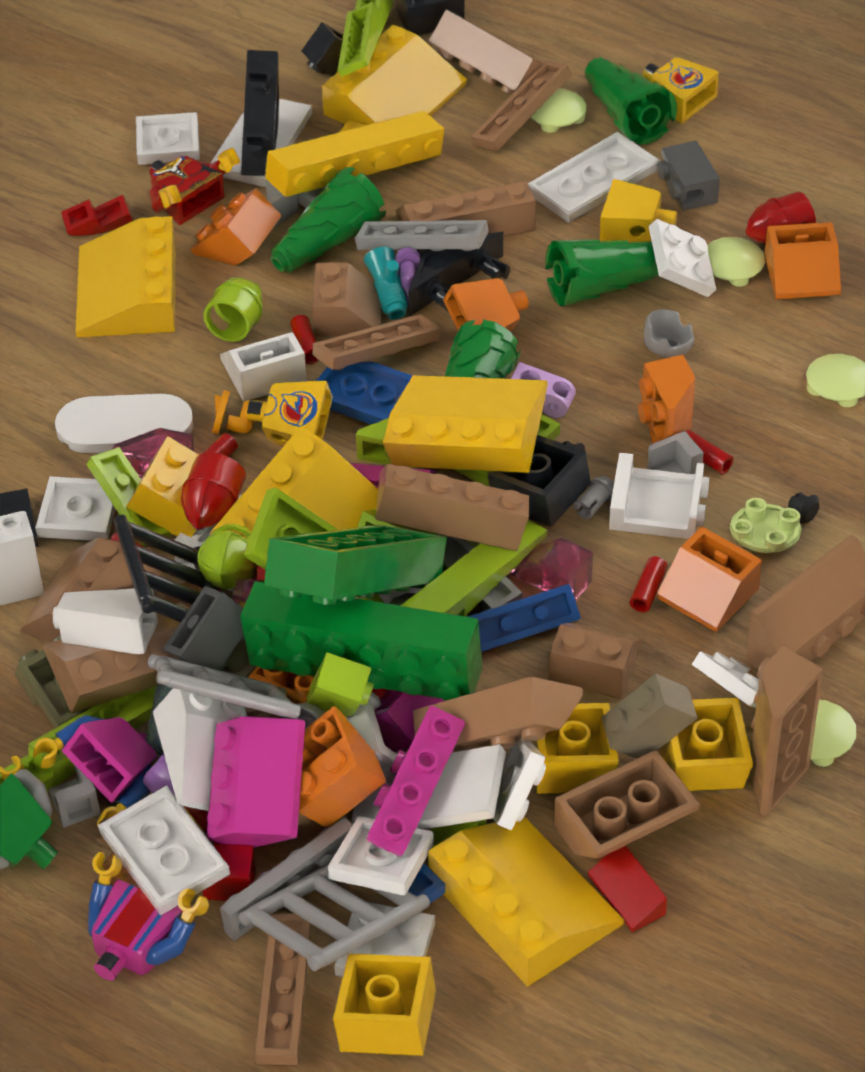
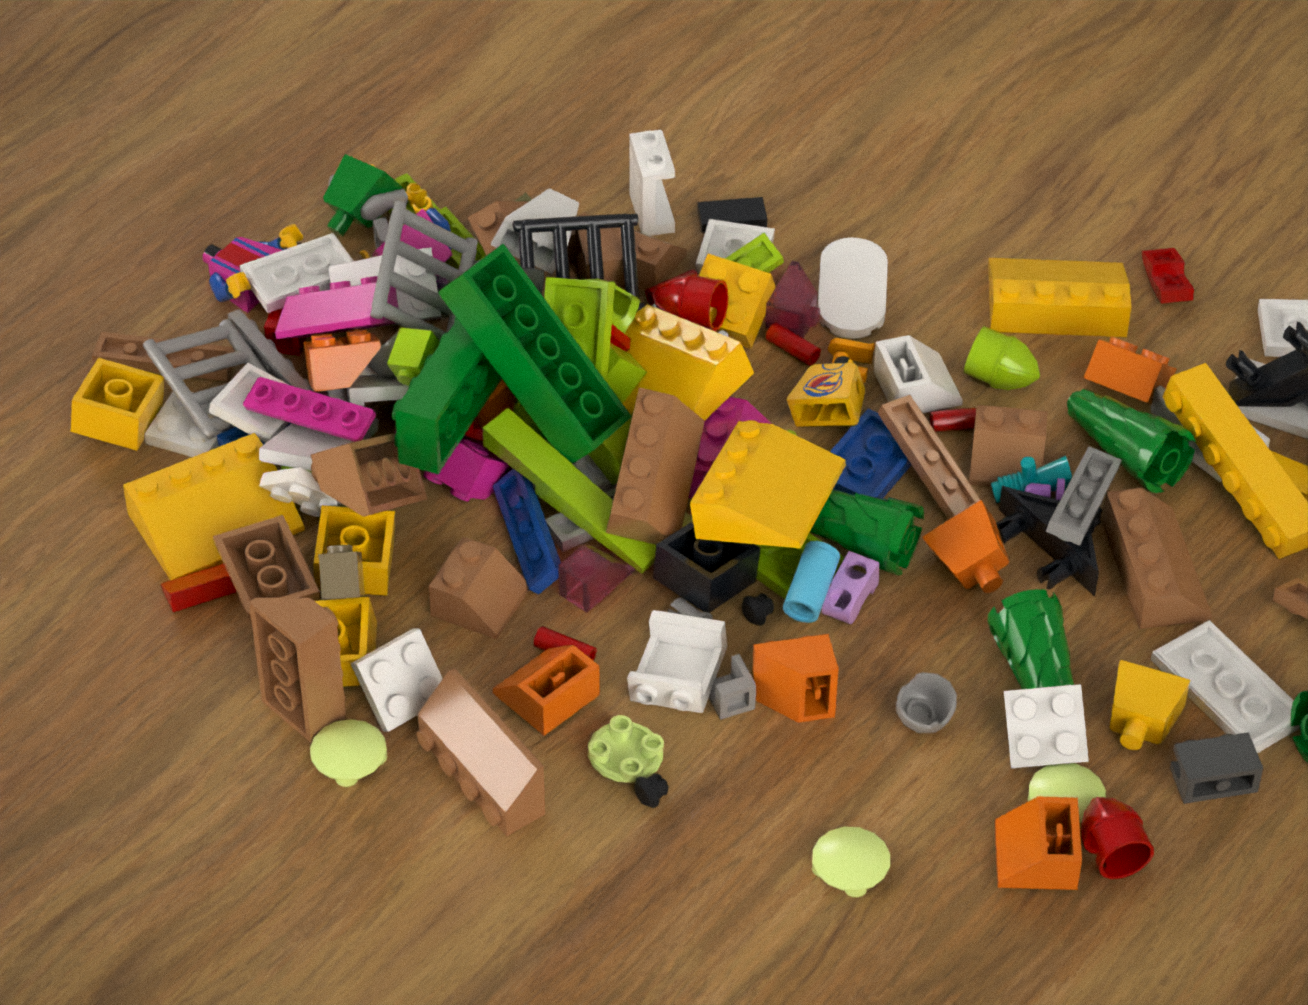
camera: 95 degrees right, 0 degrees up
(189, 186) = (1199, 331): red torso -> none
(565, 405) = (811, 581): none -> medium azure pin
(712, 455) = (747, 719): red axle -> none

